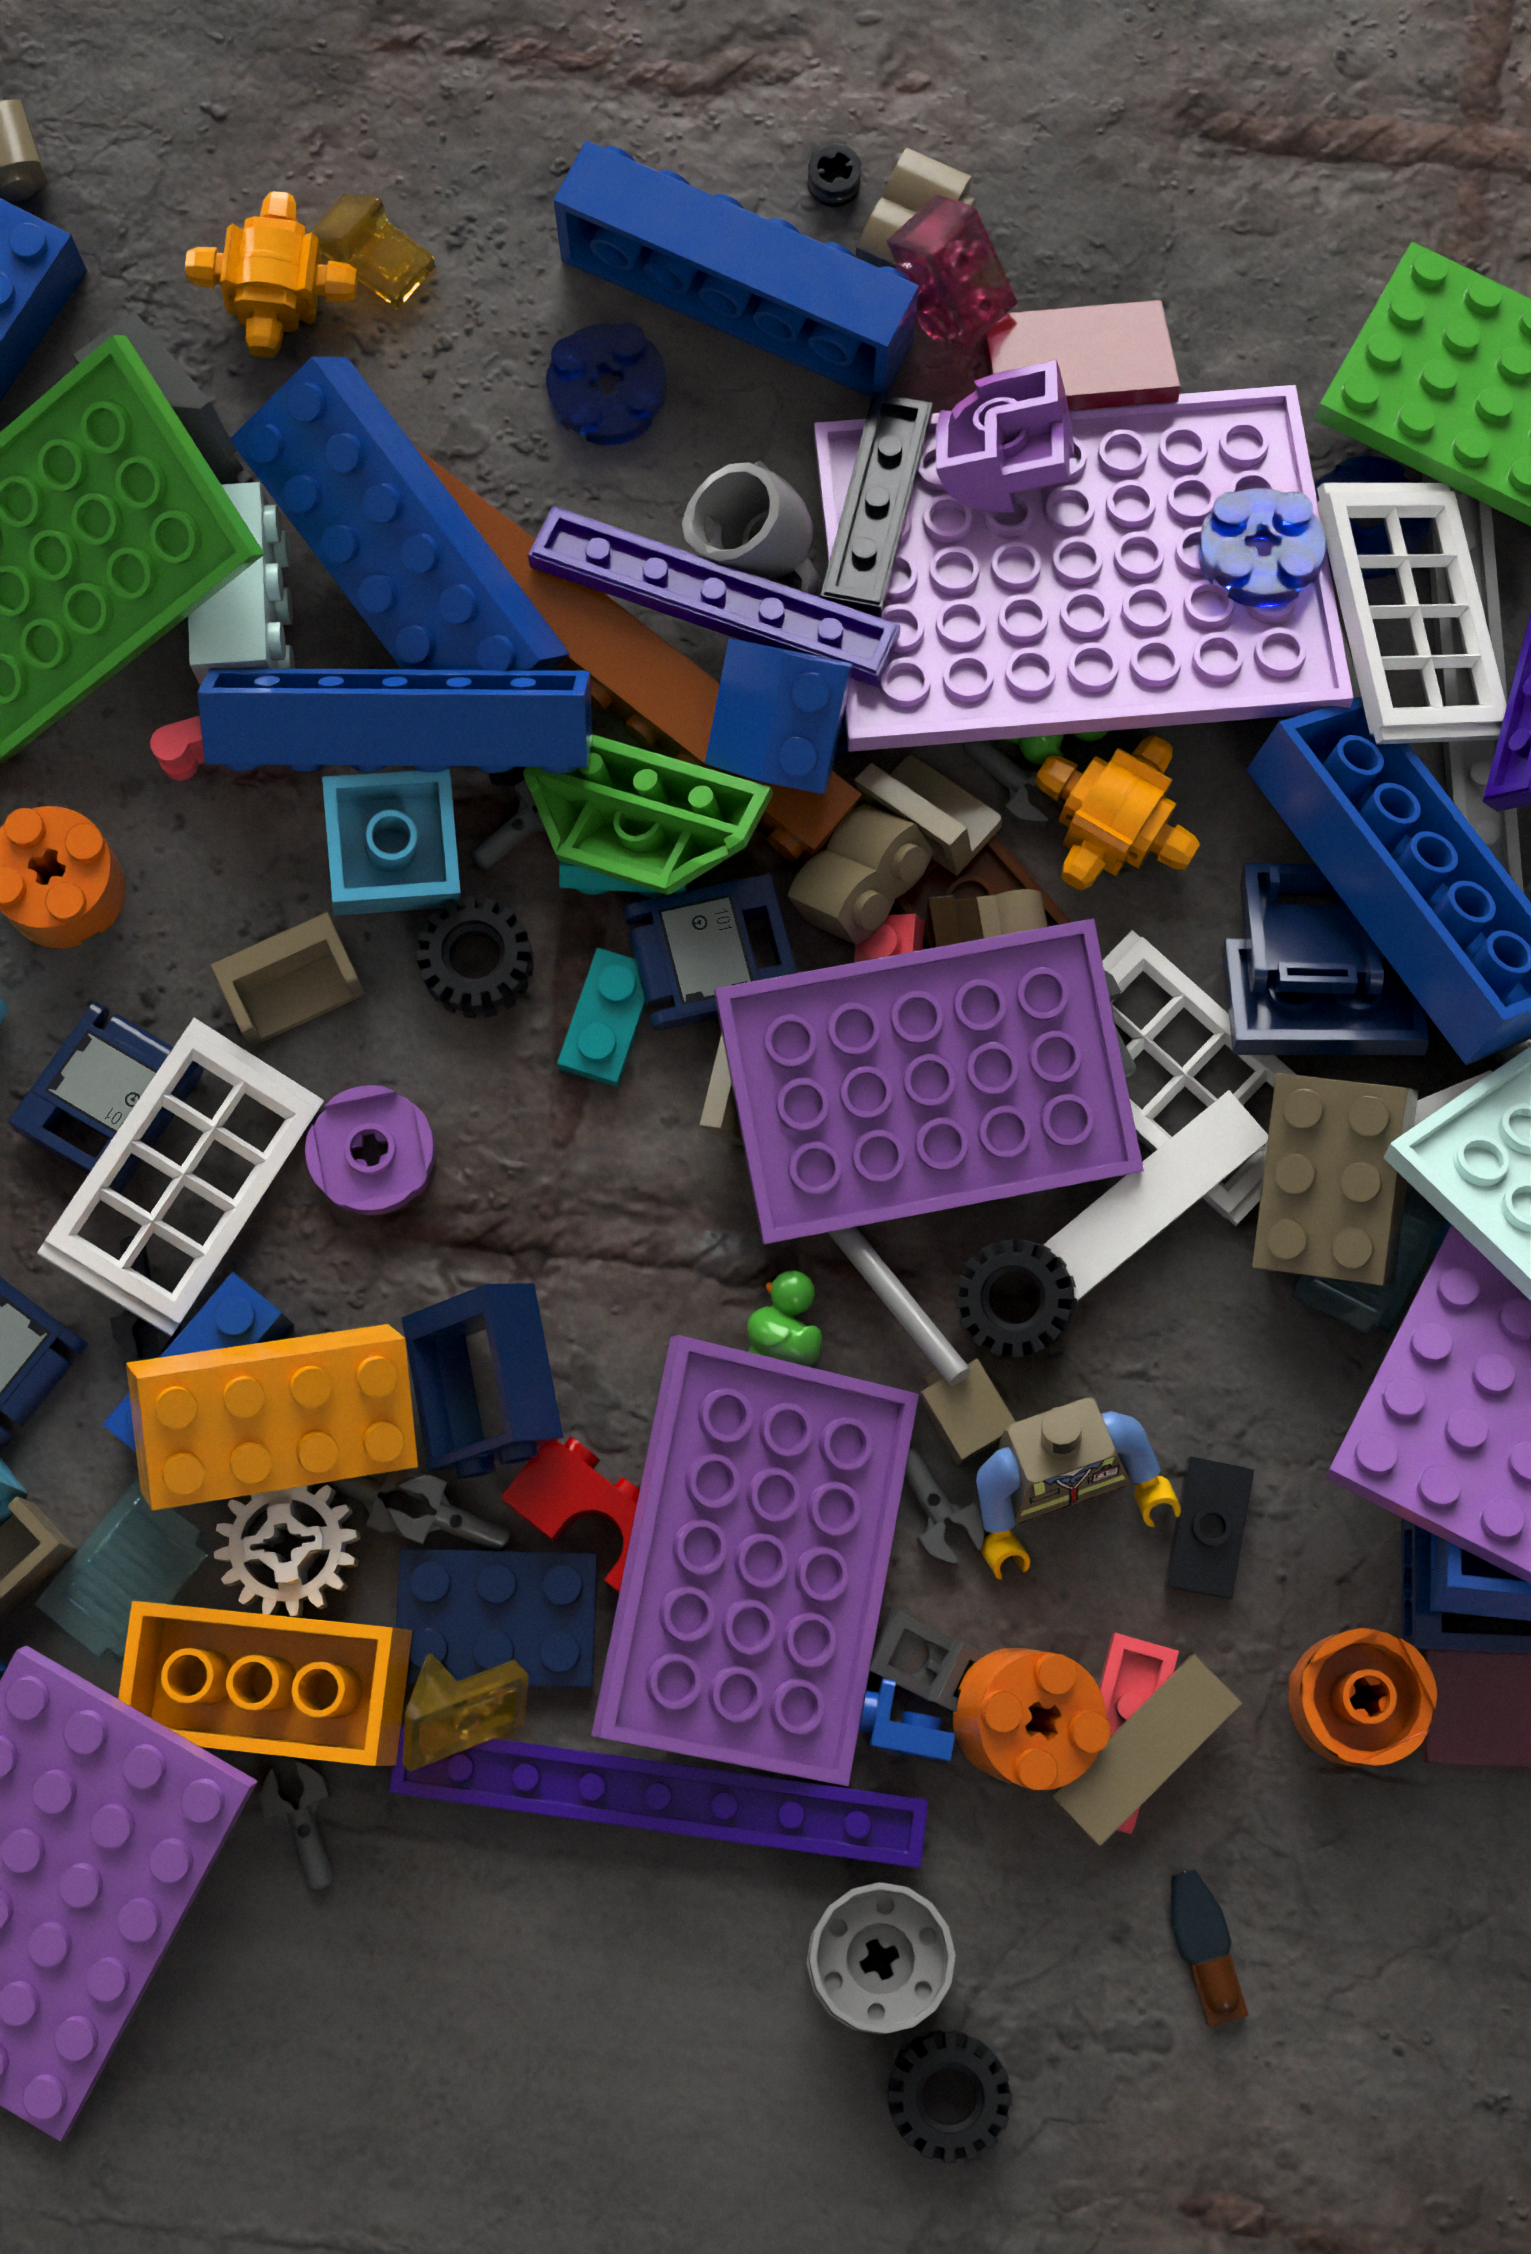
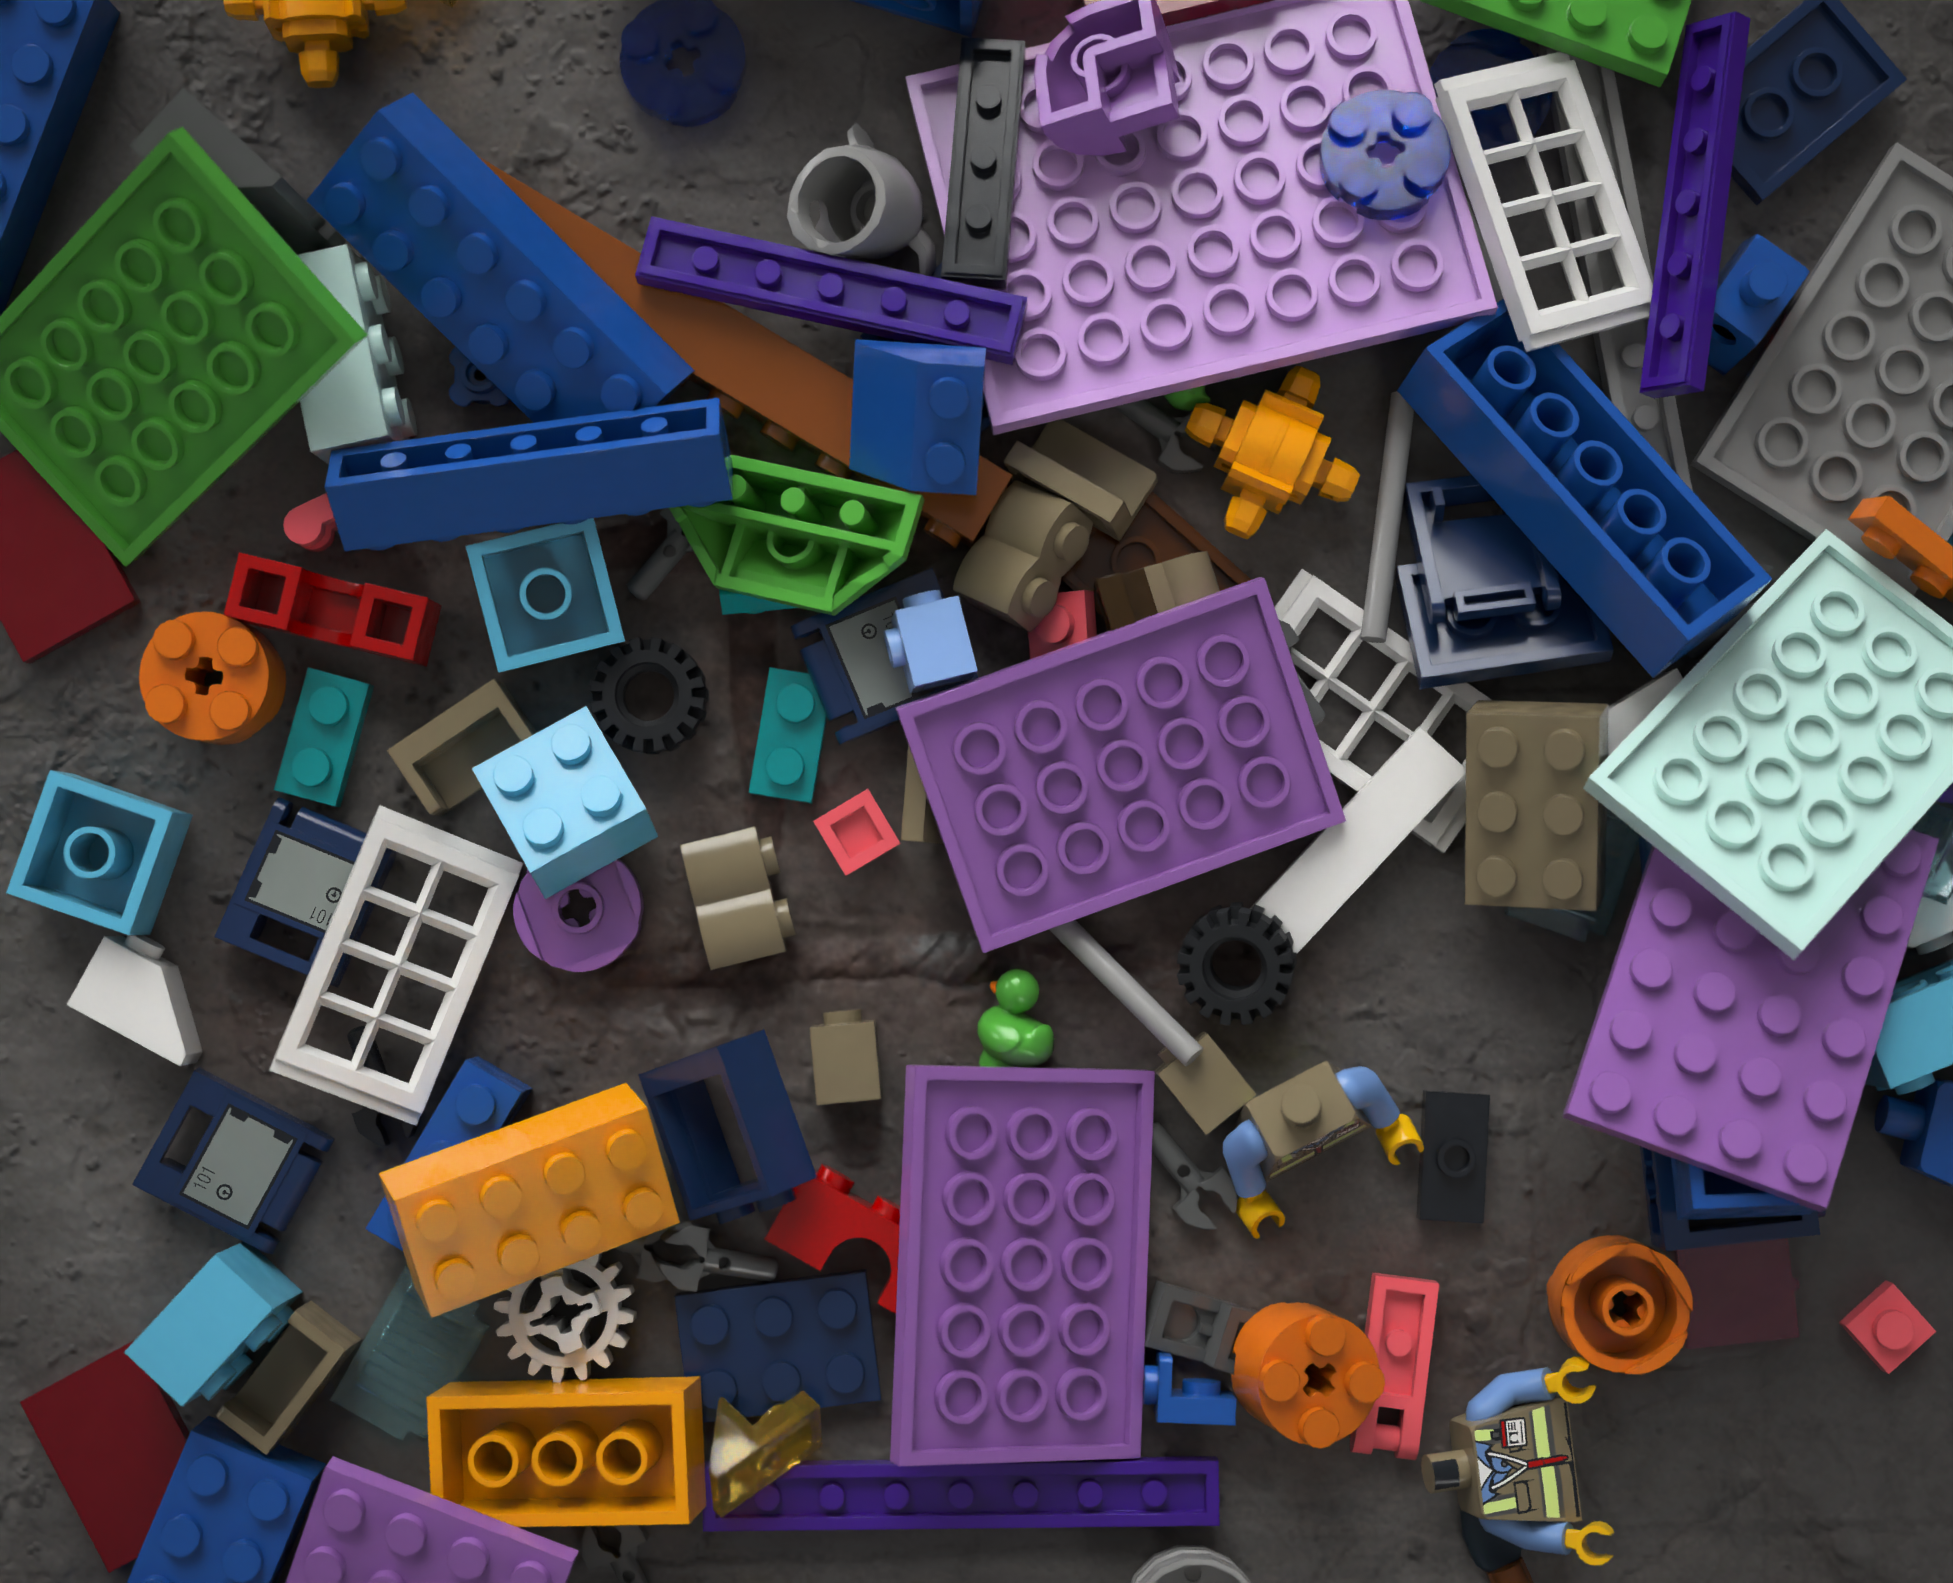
camera: 10 degrees left, 10 degrees up
(151, 953) = (324, 737): none -> teal plate
(154, 820) = (332, 609): none -> red arch
(351, 649) = (467, 388): none -> blue plate
(376, 1039) = (565, 802): none -> medium azure brick
(527, 1161) = (736, 897): none -> dark tan brick
(611, 1335) = (845, 1058): none -> dark tan brick
(657, 1117) = (857, 832): none -> coral plate
(757, 934) = (930, 641): none -> light blue brick
(1147, 1749) = (1423, 1384): dark tan tile -> none
(1222, 894) = (1387, 520): none -> light grey bar
(1237, 1847) = (1518, 1462): none -> torso

